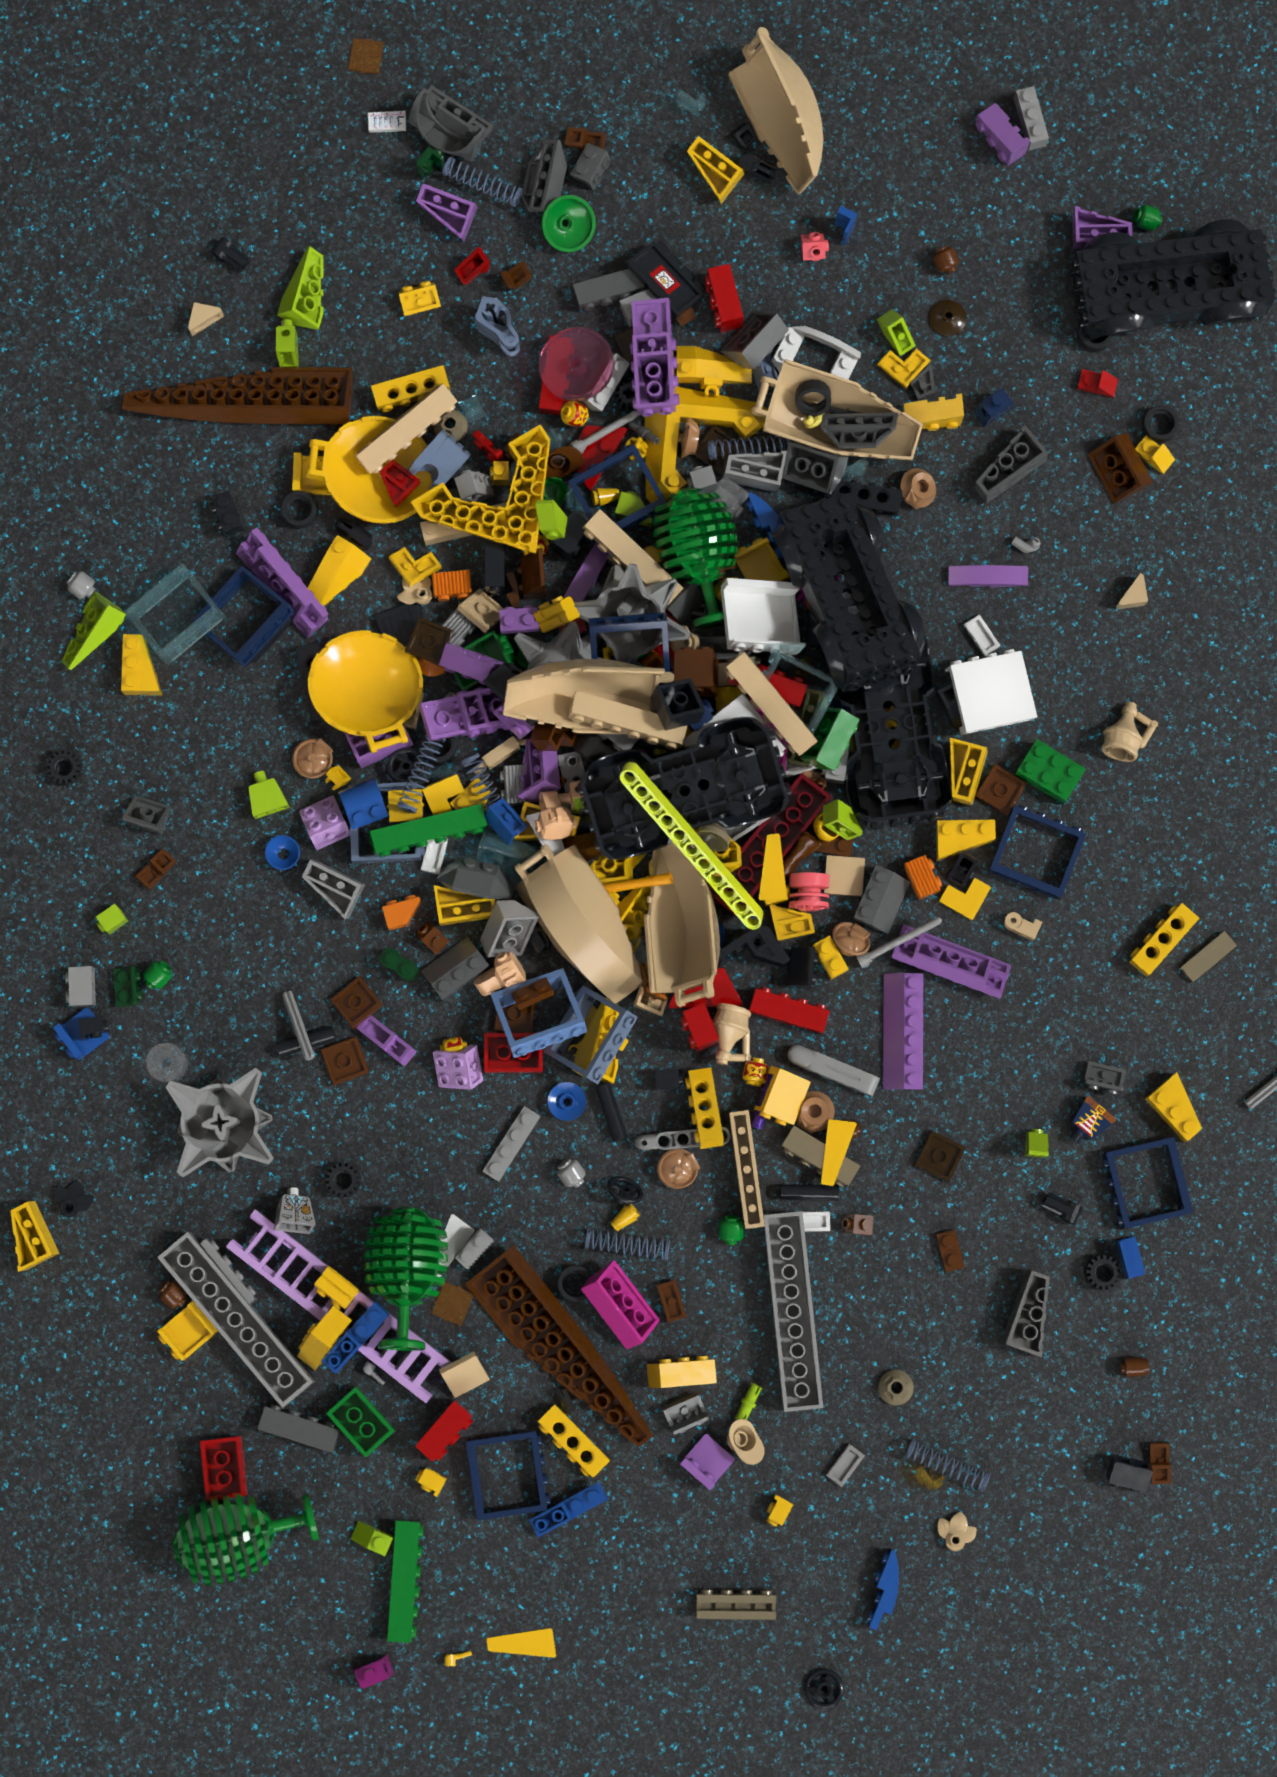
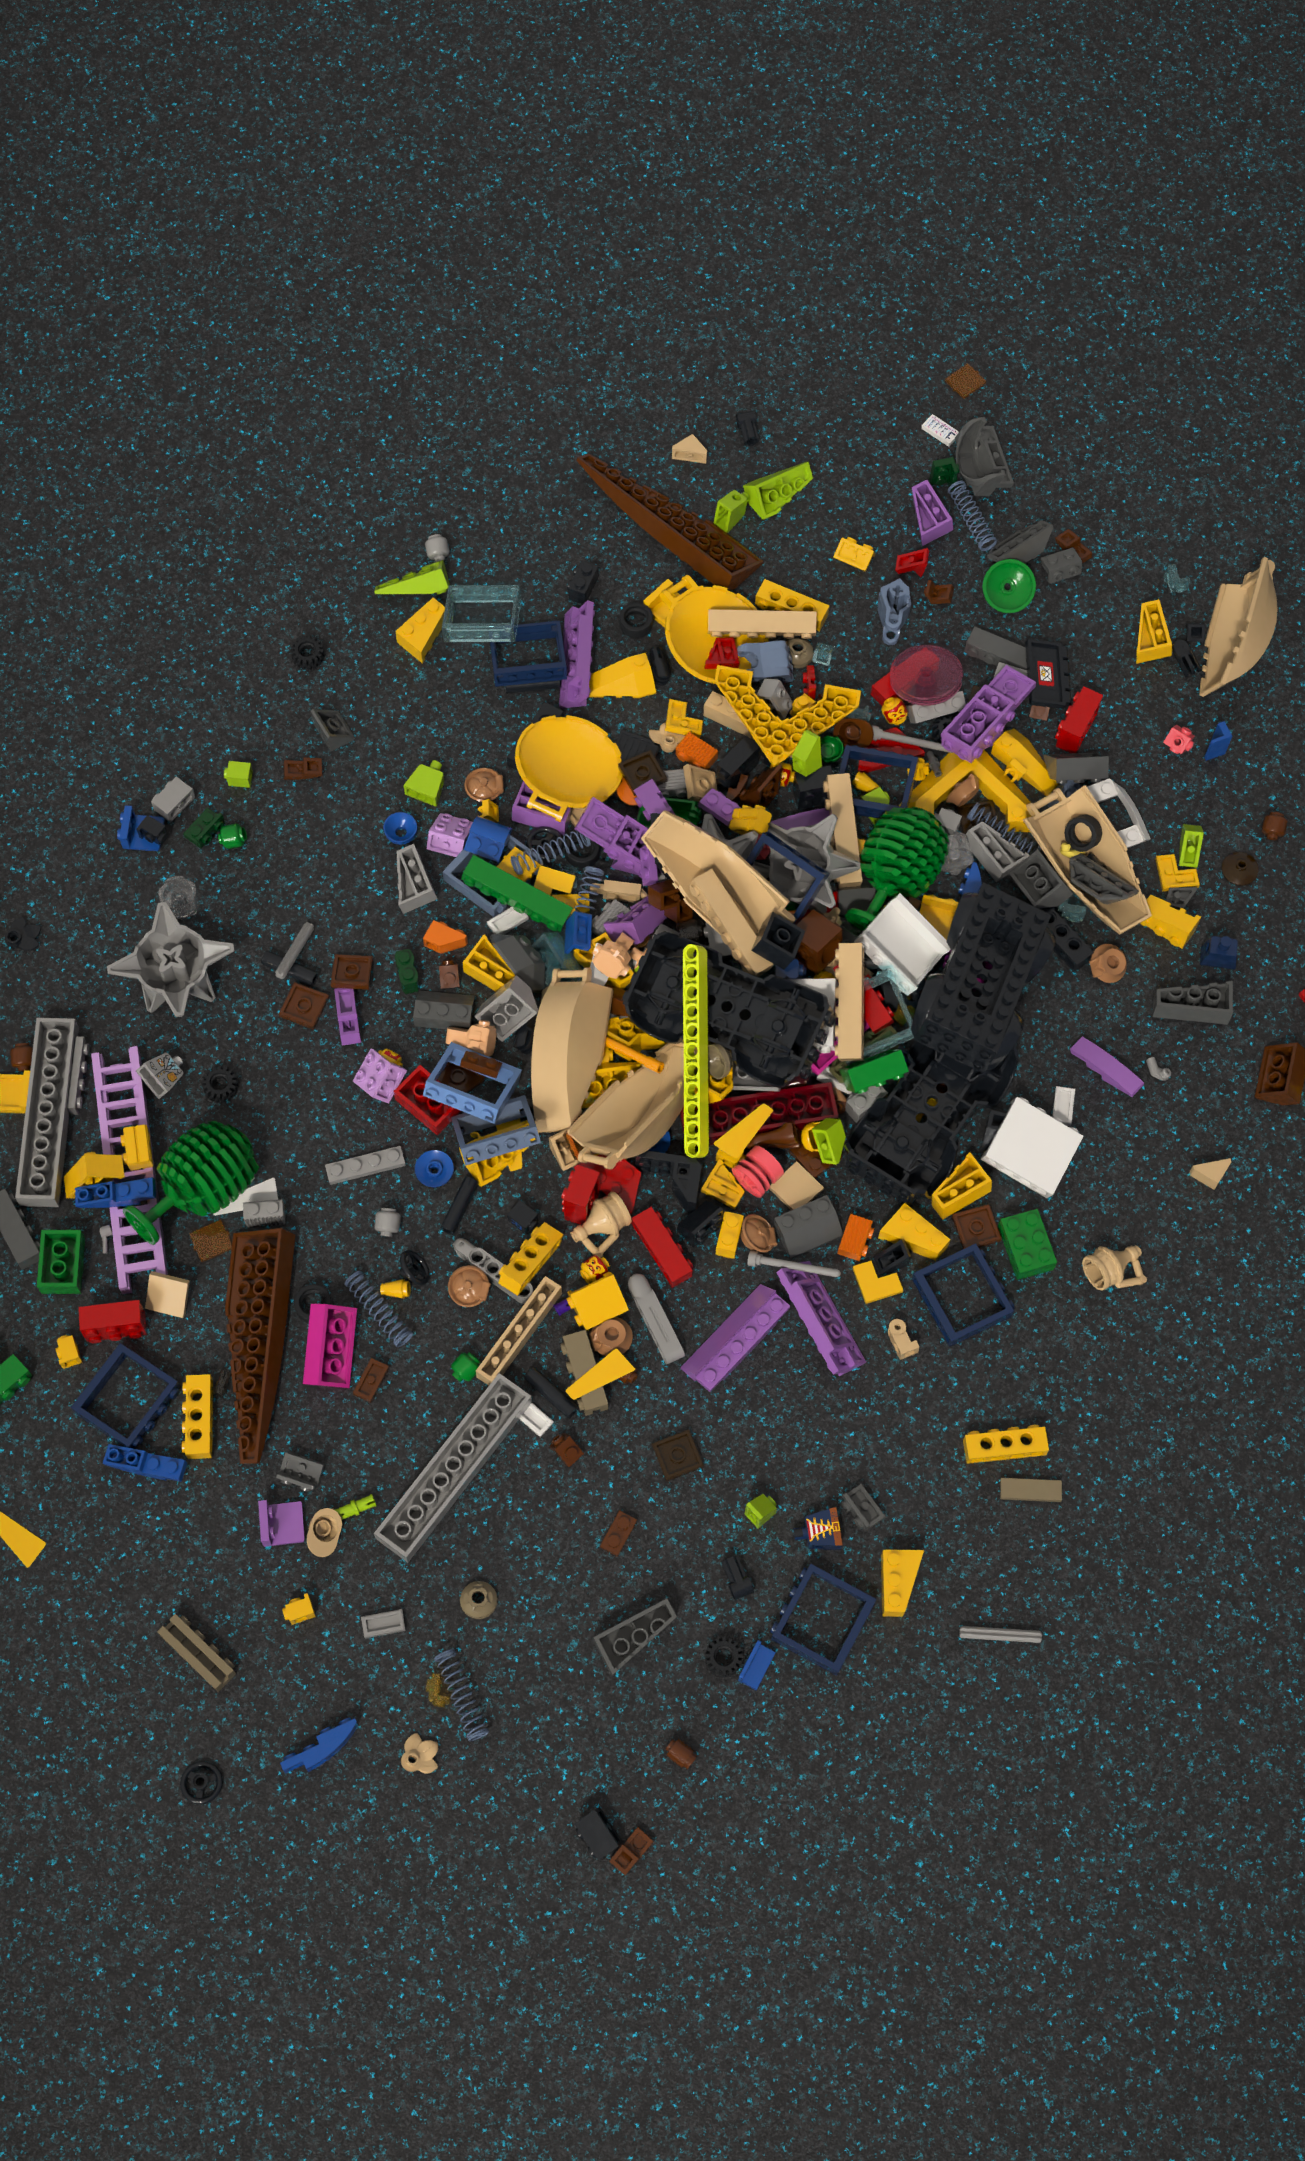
camera: 40 degrees right, 15 degrees down
(682, 1372) = (327, 1438): yellow wedge -> none

